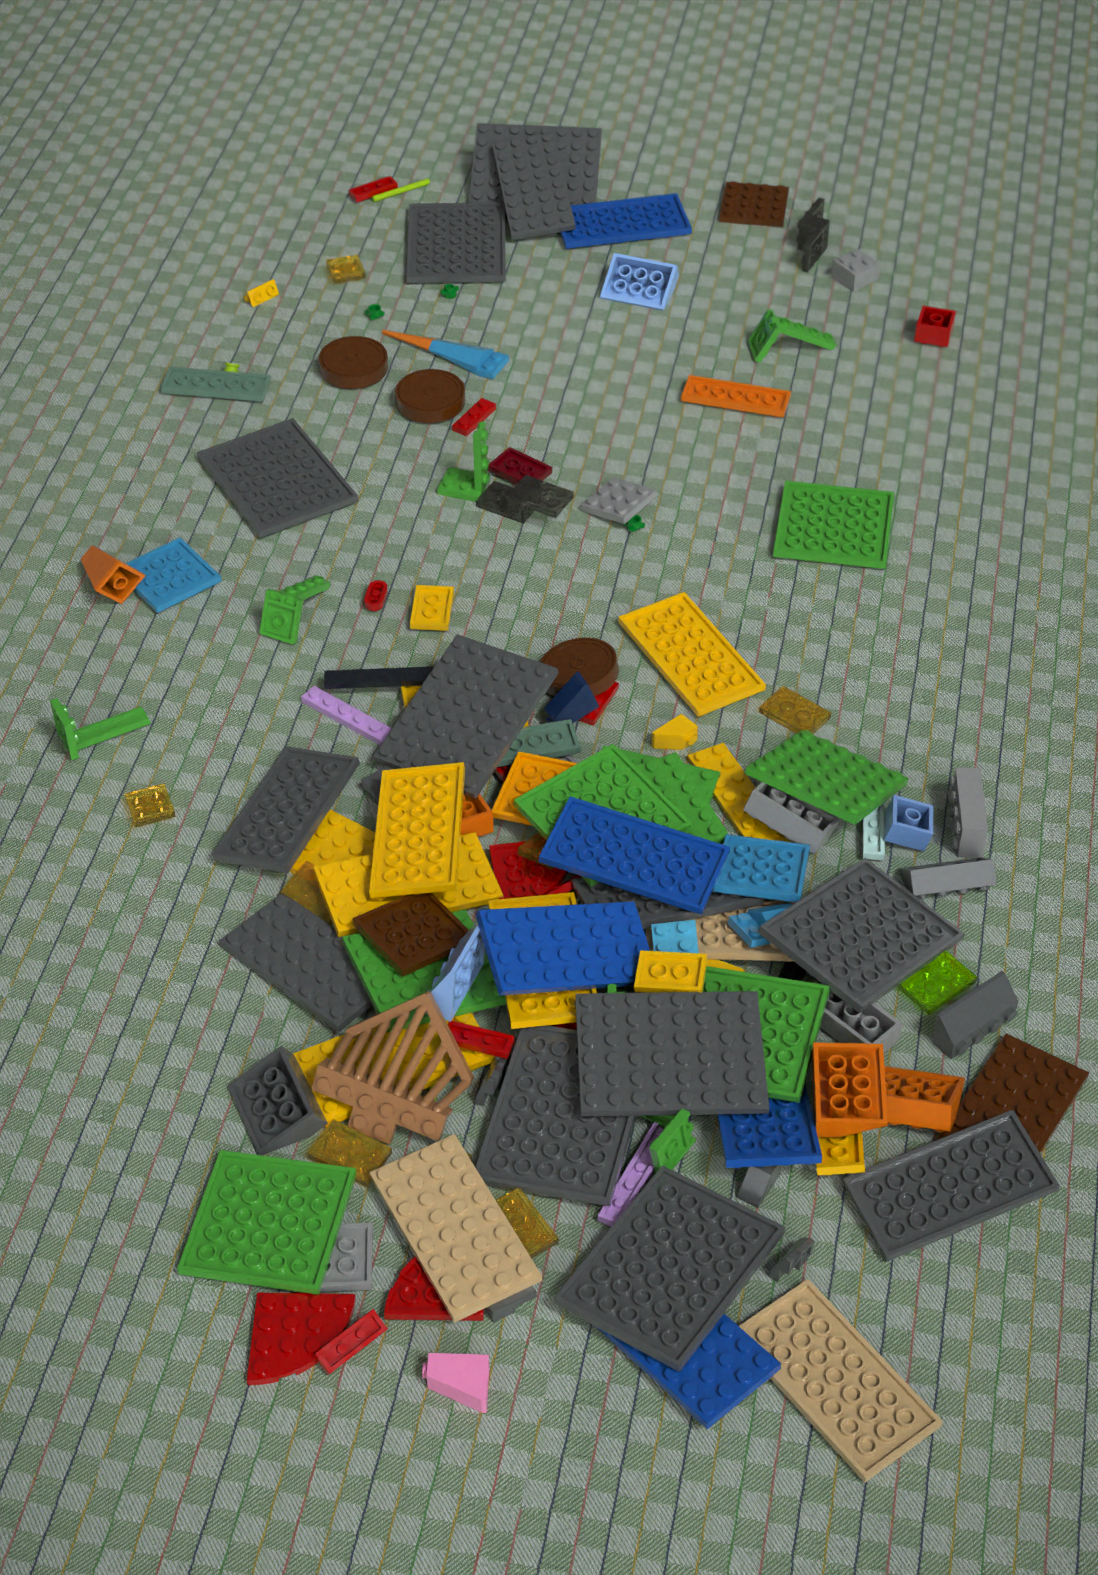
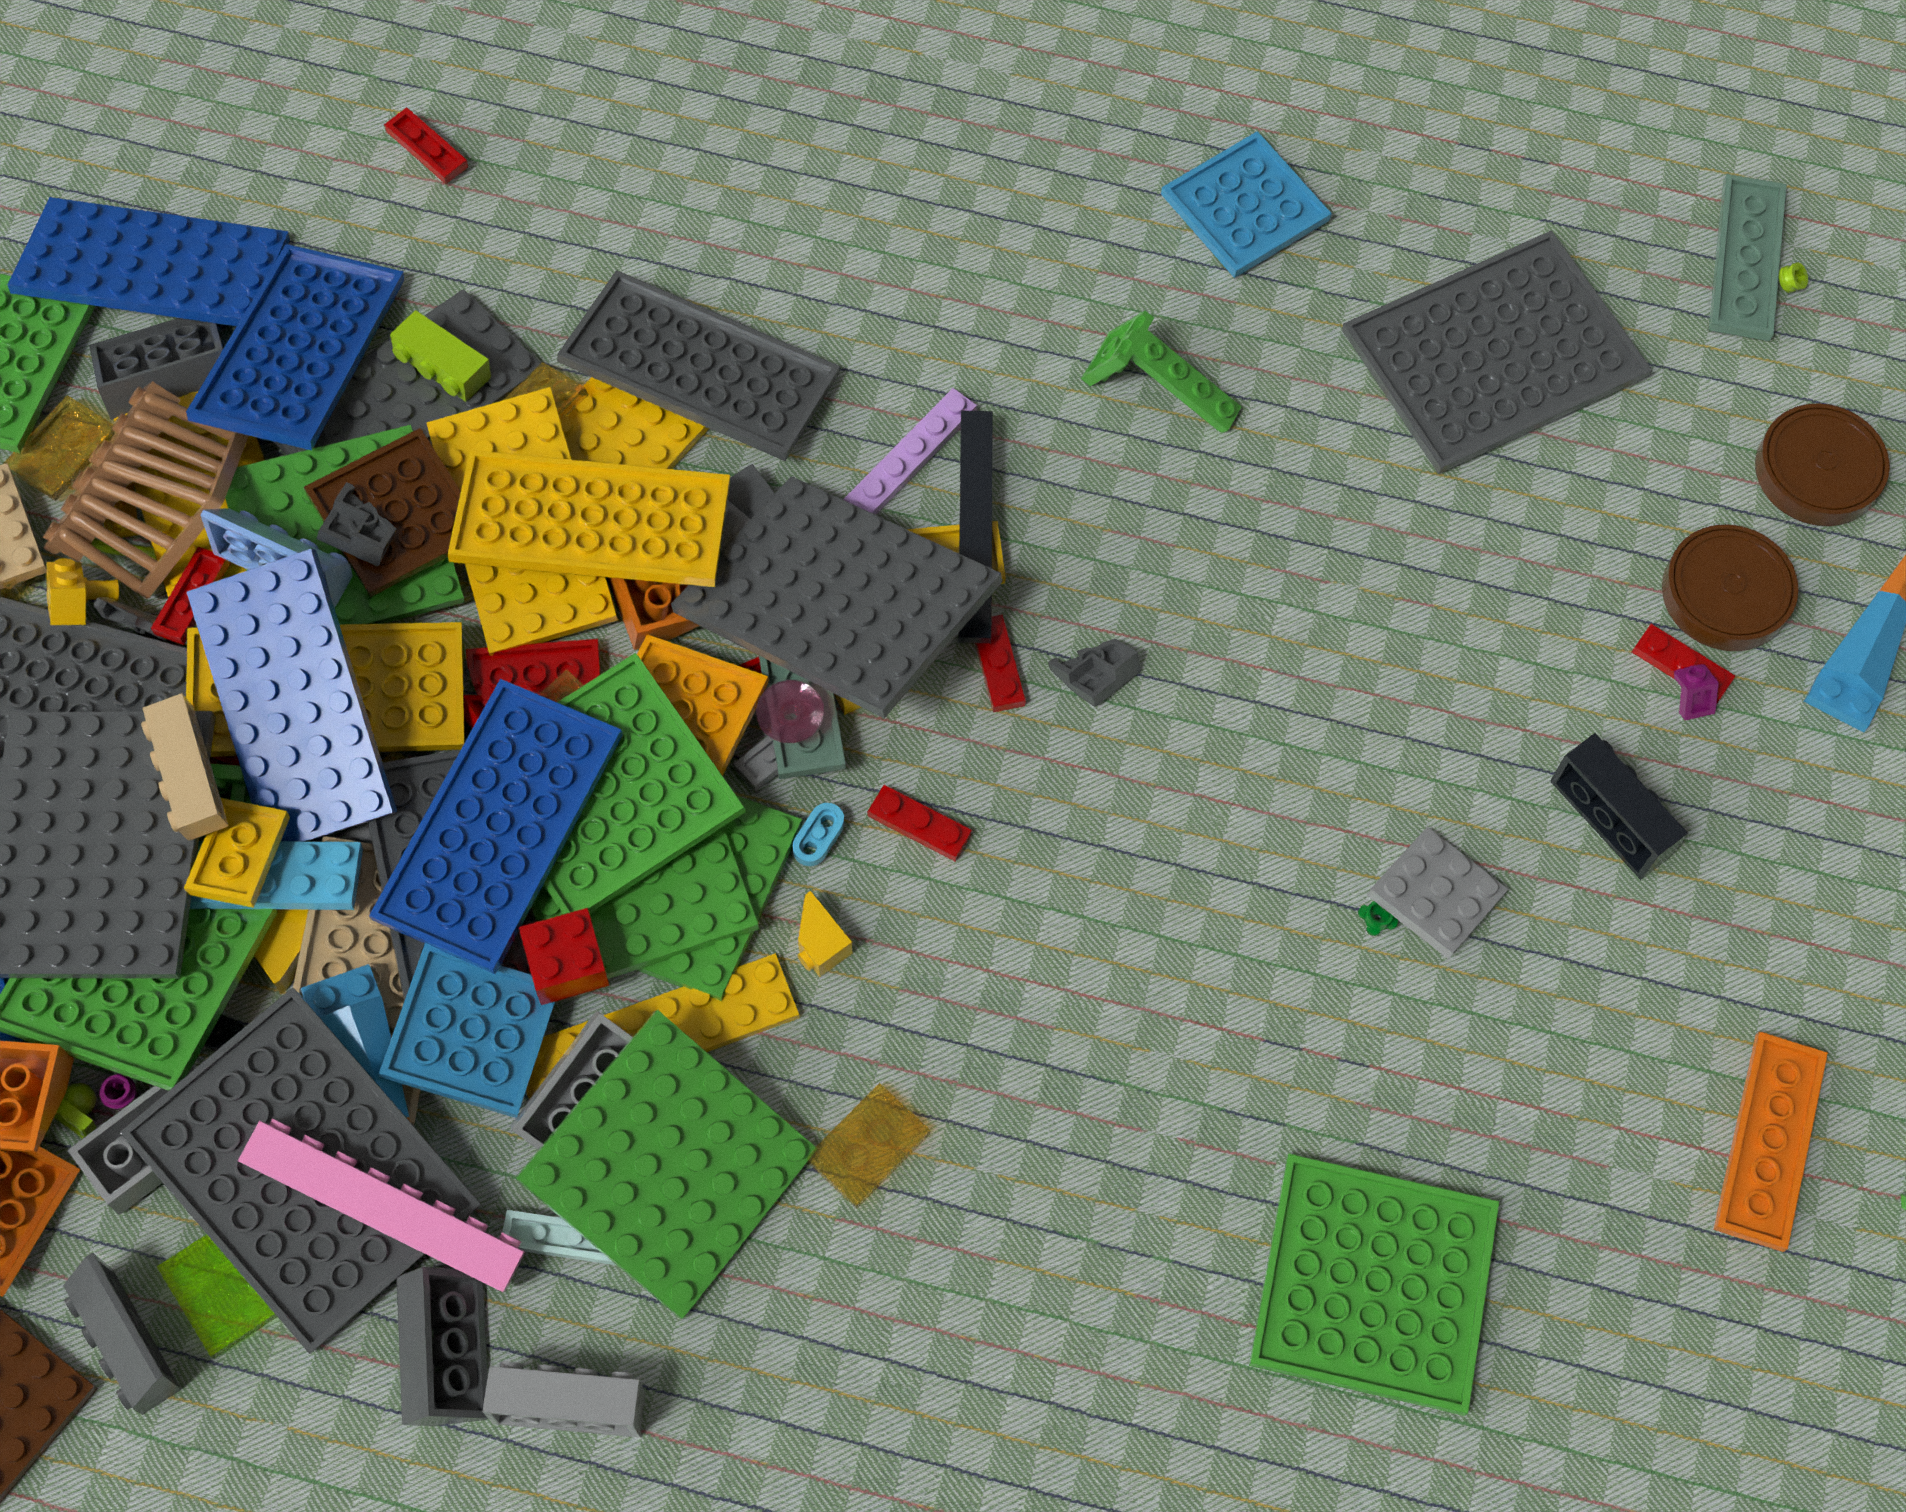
camera: 90 degrees right, 20 degrees up
(93, 974) = (426, 145): none -> red plate
(94, 733) = (871, 82): bright green bracket -> none
(110, 574) = (1232, 116): orange slope -> none
(149, 805) = (737, 197): clear yellow plate -> none
(190, 1122) = (146, 261): none -> blue plate
(275, 1008) = (296, 347): none -> blue plate
(284, 931) = (440, 356): none -> lime brick
(376, 595) = (1188, 493): red plate -> none
(432, 607) = (1155, 577): yellow plate -> none
(432, 939) = (356, 528): none -> dark grey slope
(466, 483) = (1488, 638): bright green bracket -> none
(476, 1114) = (70, 591): none -> yellow brick
(491, 405) = (1697, 691): none -> magenta bracket
(493, 629) = (1098, 670): none -> dark grey slope
(515, 465) = (1528, 731): dark red plate -> none
(524, 499) = (1427, 729): clear smoke bracket -> none
(543, 736) = (786, 698): none -> clear pink dish
(566, 432) = (1618, 806): none -> black brick
(571, 701) = (885, 770): dark blue slope -> none
(590, 656) = (981, 791): reddish brown brick -> none
(606, 736) = (816, 835): none -> medium azure plate
(622, 989) = (184, 767): none -> tan brick
(691, 654) = (1022, 982): yellow plate -> none
(715, 819) = (564, 956): none -> red brick
(828, 1033) = (118, 1091): none -> magenta cone
(878, 891) = (381, 1205): none -> bright pink brick
(908, 823) = (554, 1292): medium blue brick -> none

